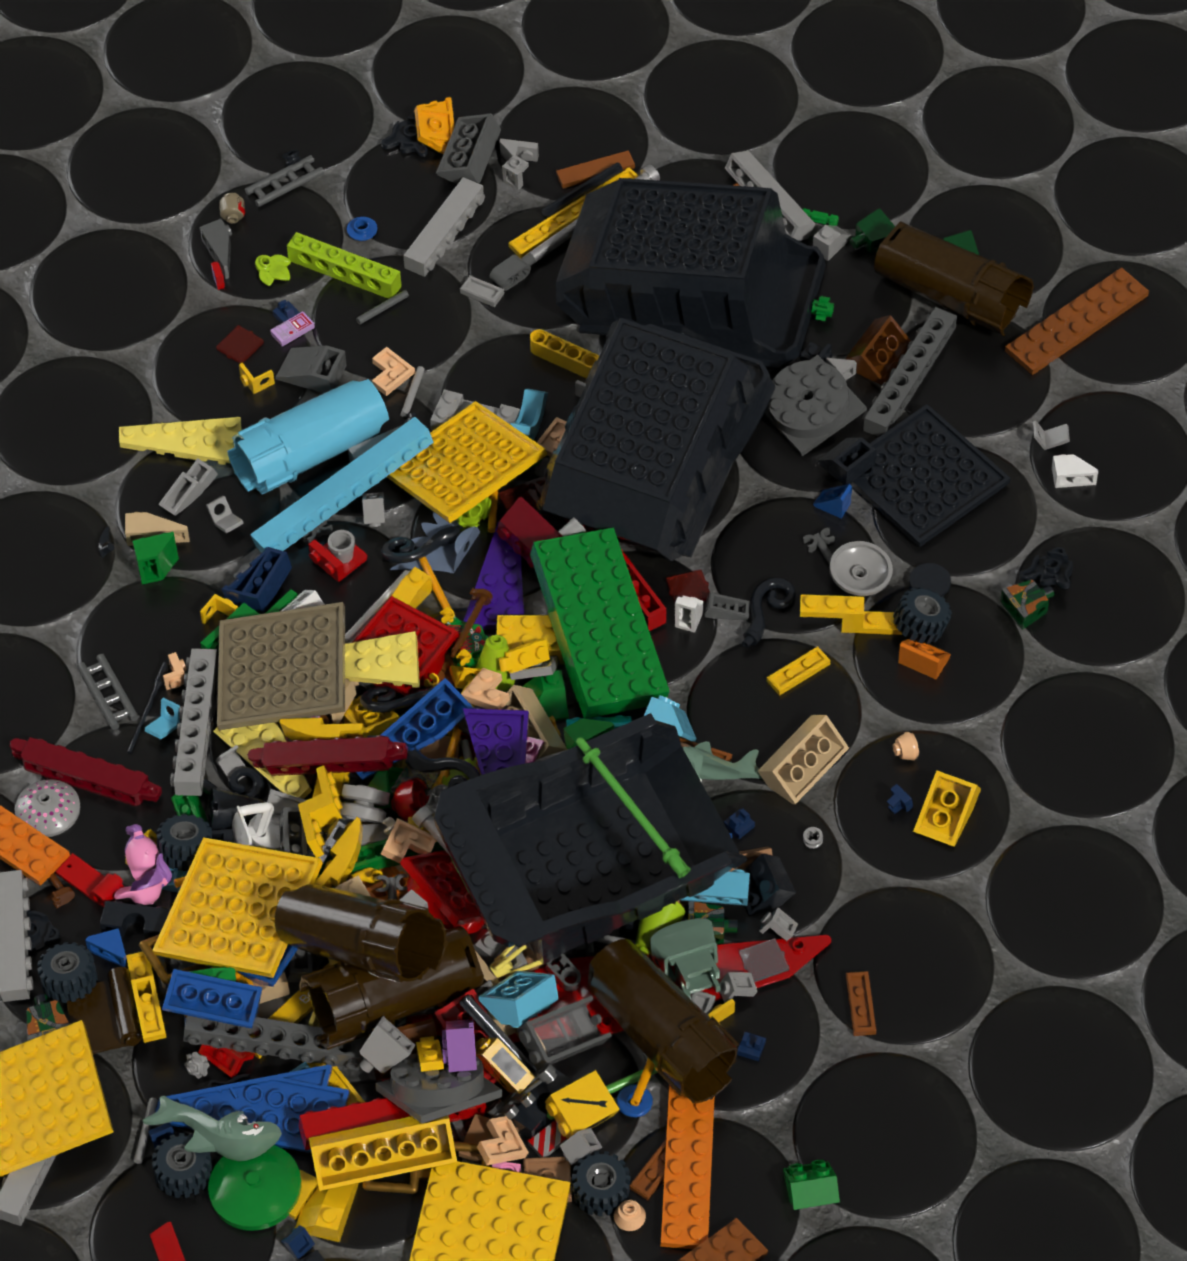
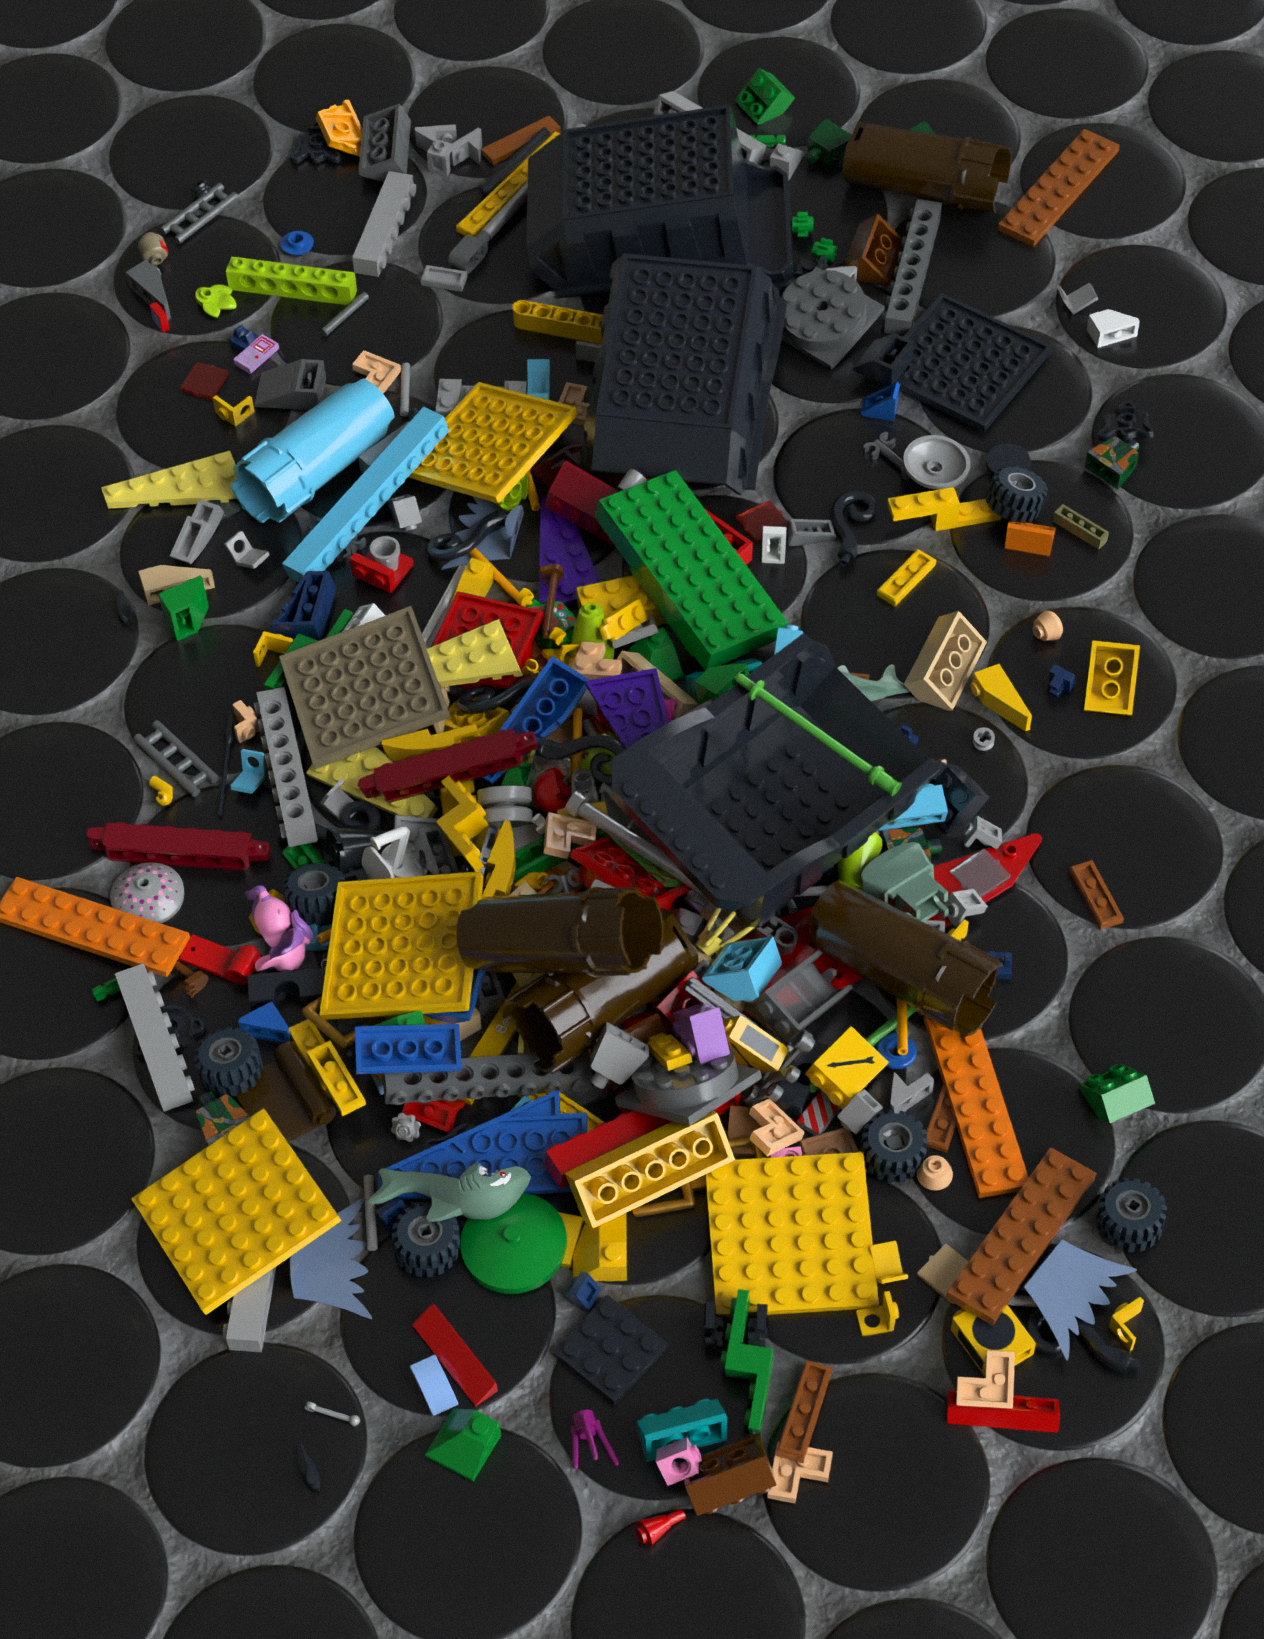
camera: 15 degrees left, 0 degrees up
(89, 718) = (165, 790): none -> yellow arm
(93, 1167) = (324, 1267): none -> sand blue piece
(543, 166) = (466, 147): none -> light grey slope
(626, 1143) = (906, 1096): none -> light grey slope
(832, 173) = (764, 97): none -> green slope
(834, 338) = (824, 248): none -> green gear
(840, 801) = (999, 695): none -> yellow slope
(973, 658) = (1080, 526): none -> olive piece

